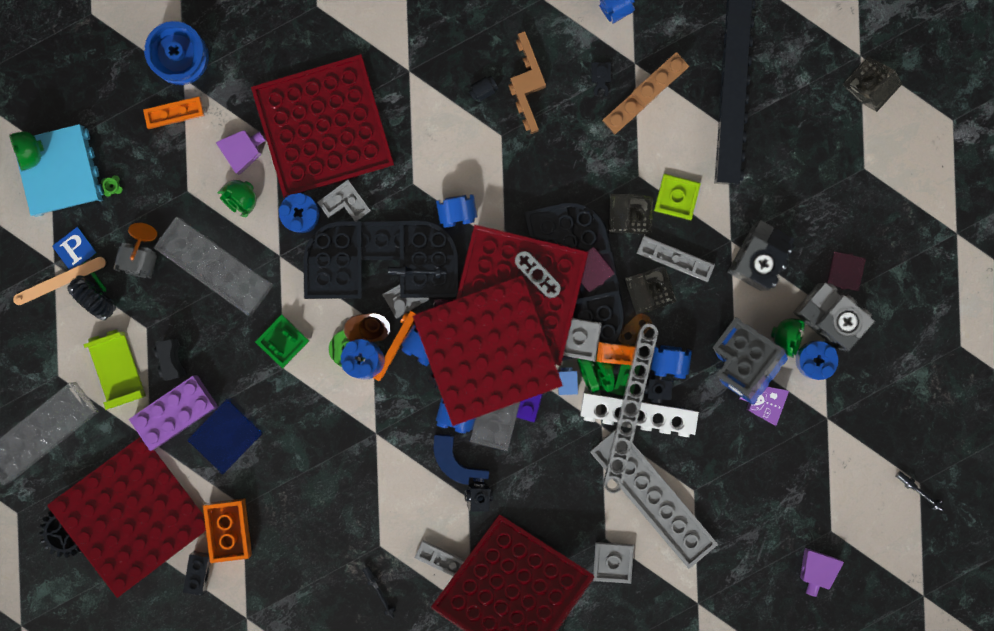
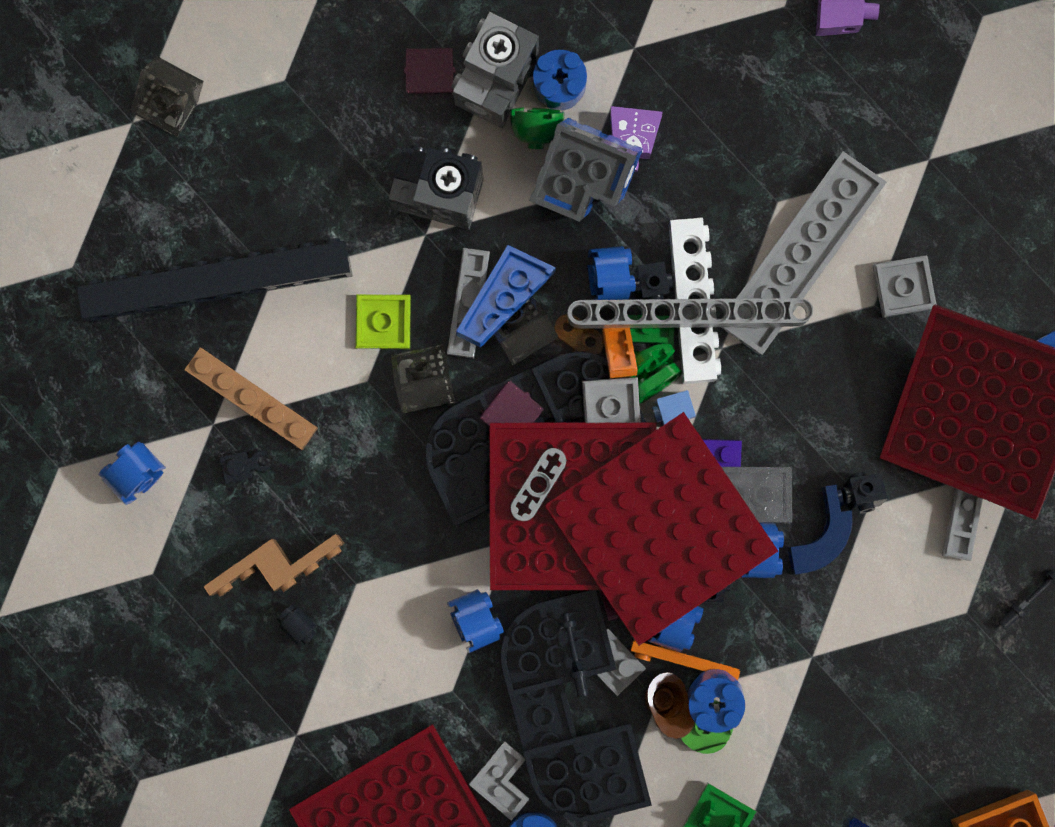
camera: 100 degrees left, 5 degrees down
(678, 287) = (504, 292): none -> blue wing

